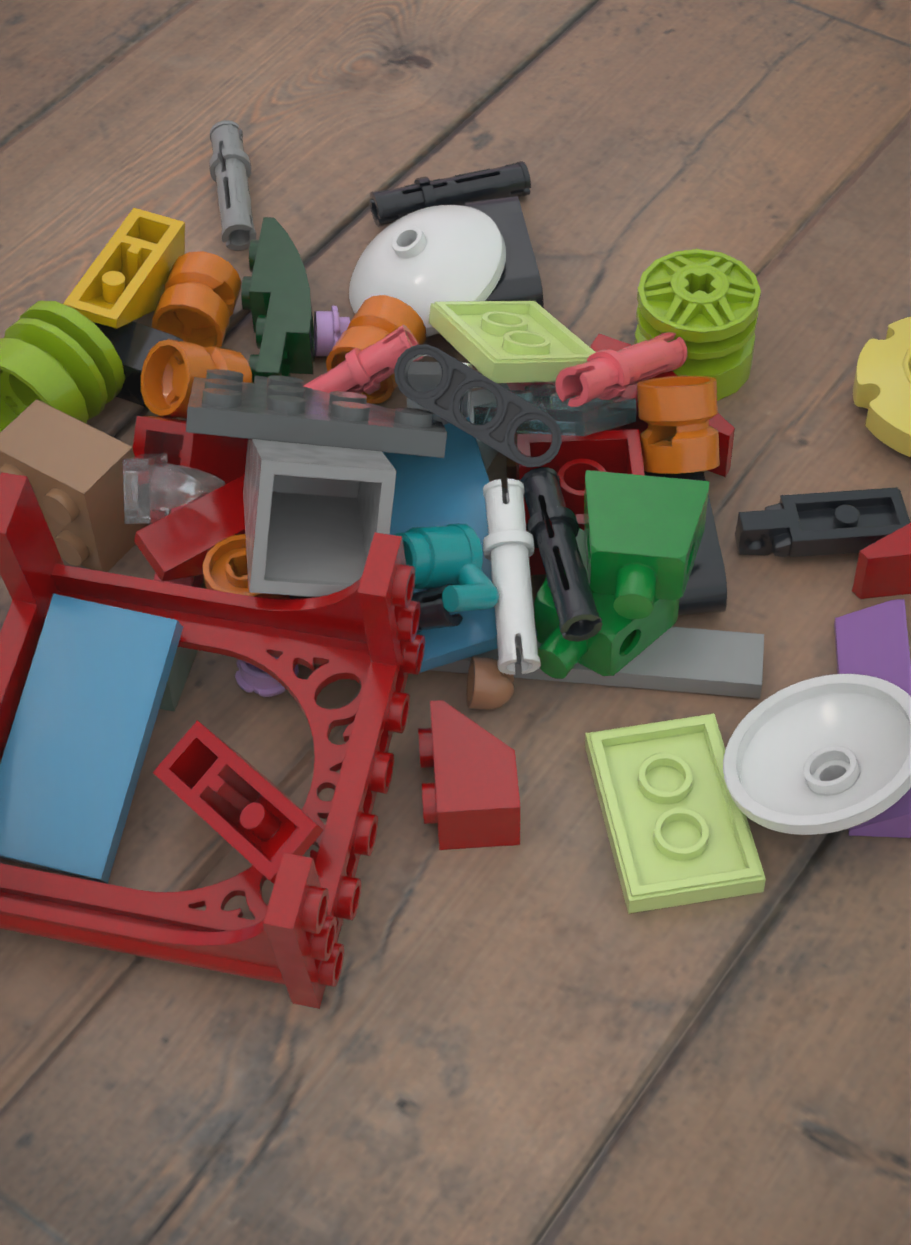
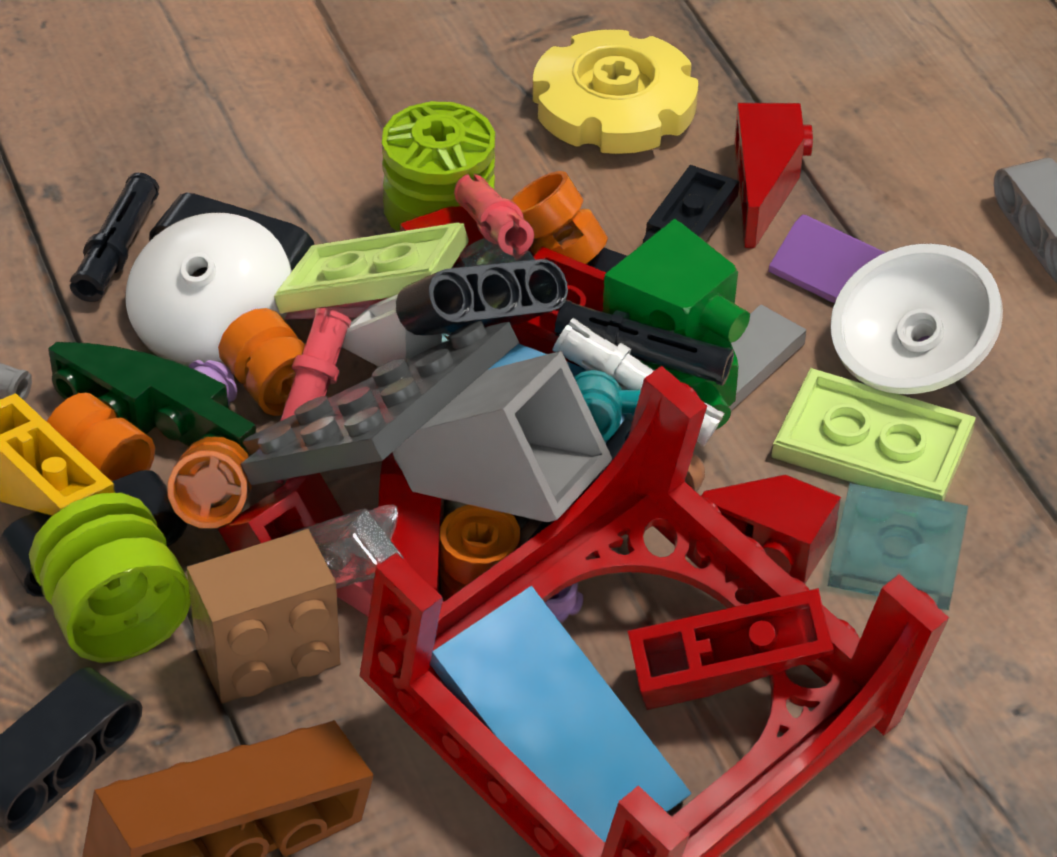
camera: 60 degrees left, 5 degrees down
(539, 899) = (895, 535): none -> clear light blue plate

